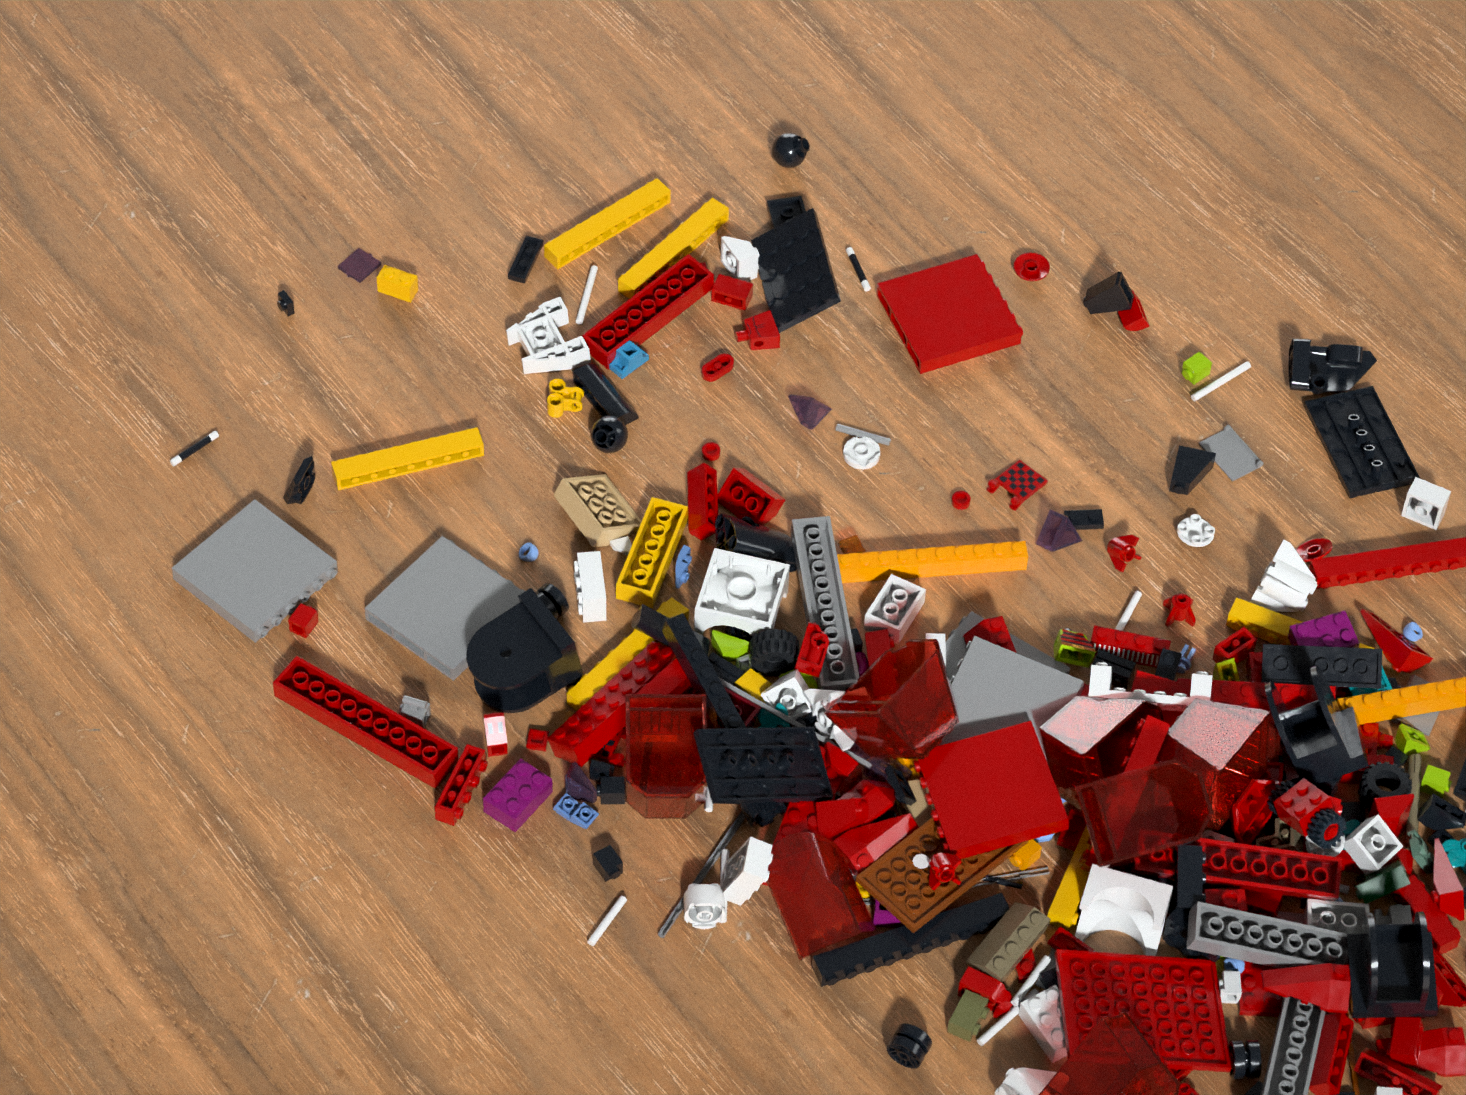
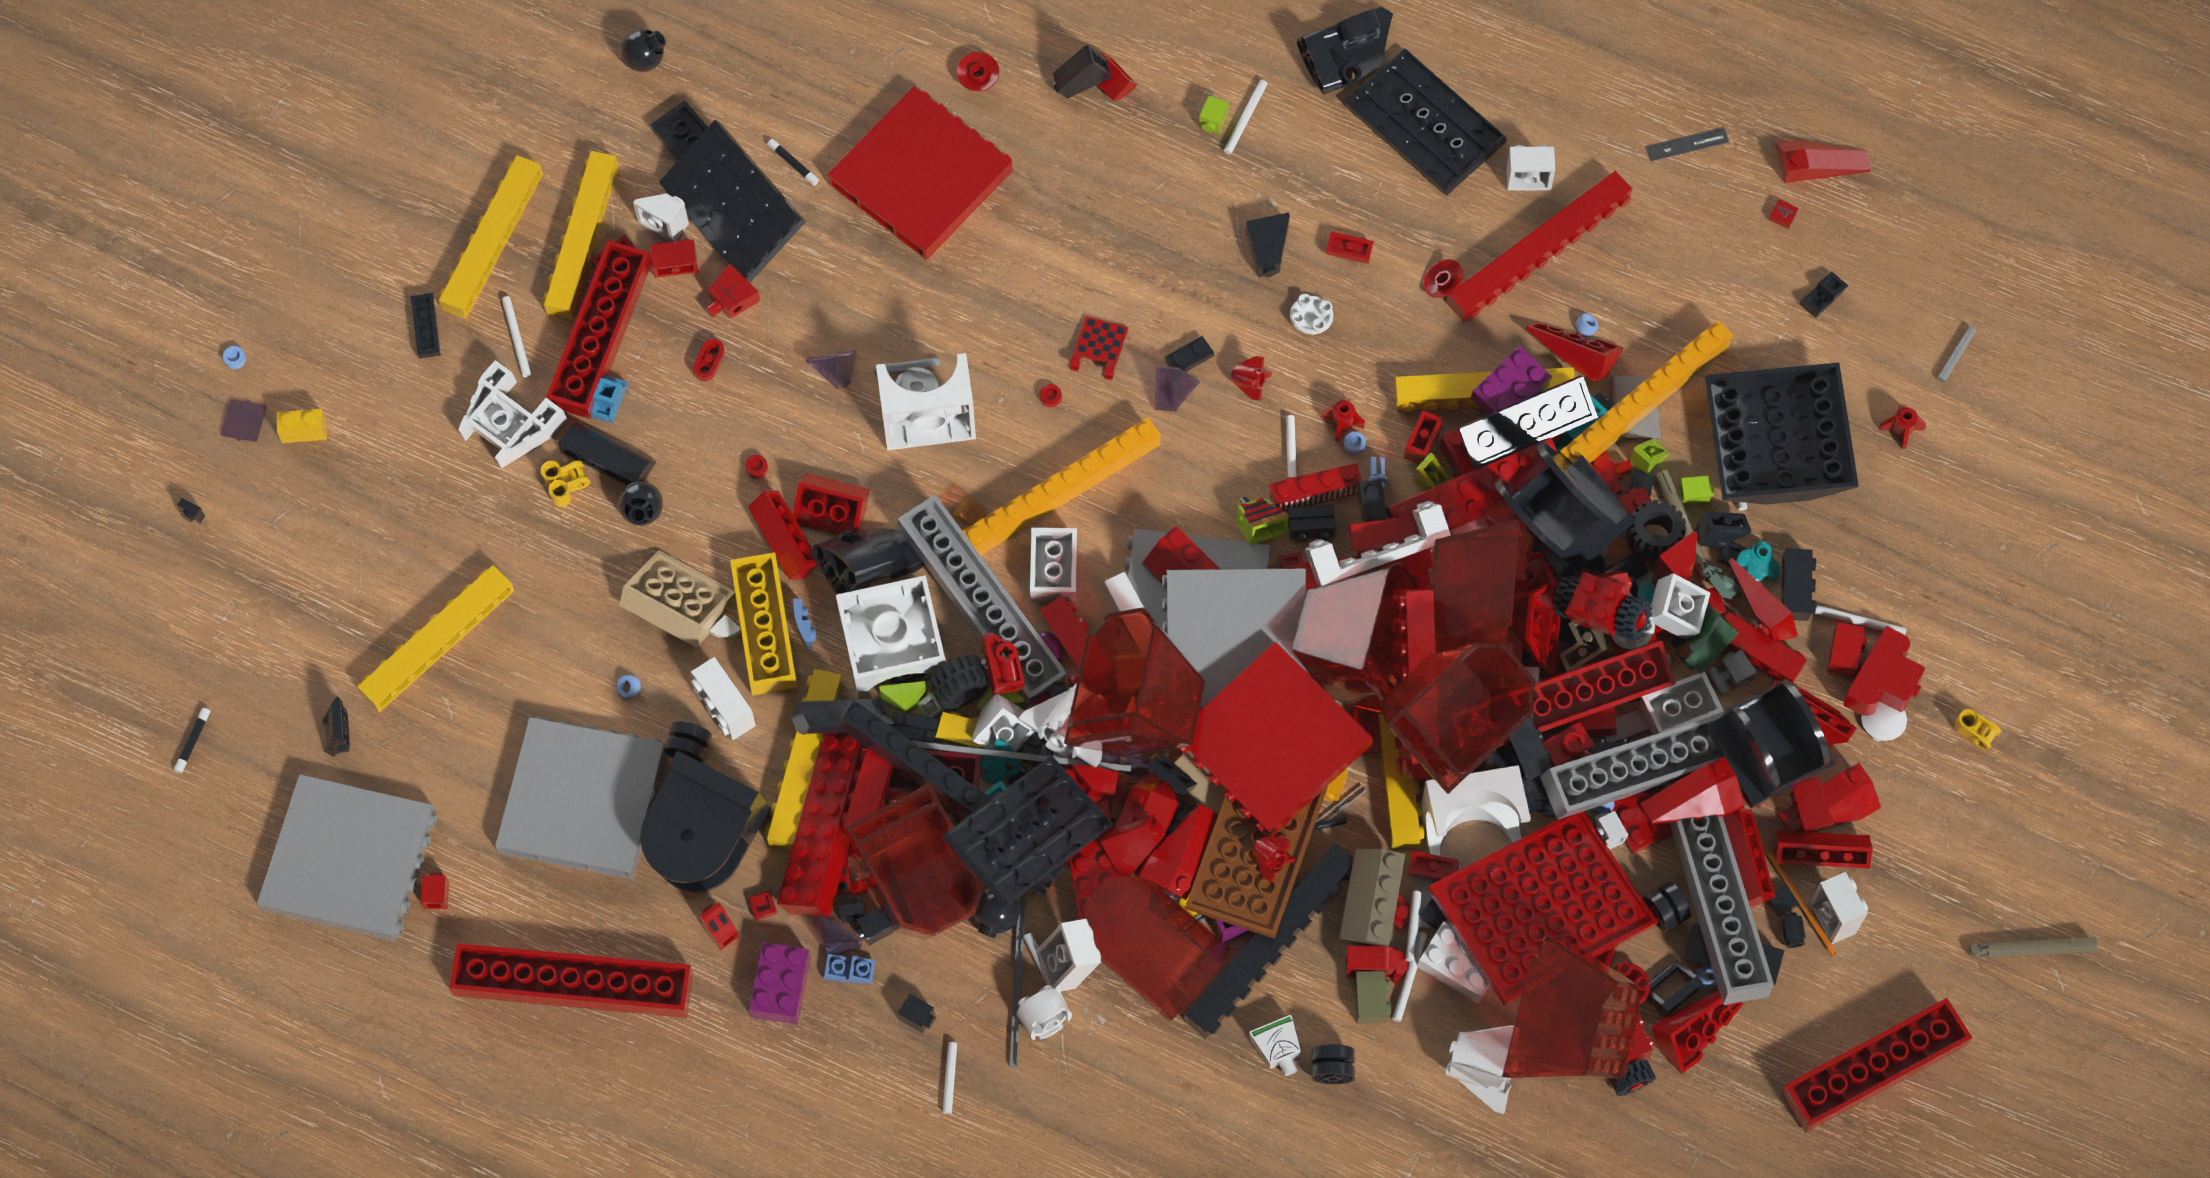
camera: 25 degrees left, 15 degrees up
(378, 223) = (234, 357): none -> light blue tile
(415, 710) = (616, 941): light grey brick -> none
(460, 785) = (714, 1003): red brick -> none
(710, 821) = (994, 917): none -> black brick
(857, 463) = (928, 416): none -> white piece
(857, 641) = (1034, 621): black tile -> none
(874, 1013) = (1277, 1044): none -> white torso
(921, 861) = (1241, 853): white sticker -> none
(1179, 632) = (1354, 443): none -> light blue tile
(1231, 453) = (1303, 200): light grey piece -> none
(1251, 499) = (1349, 247): none -> red plate
(1285, 582) = (1437, 336): white brick -> none

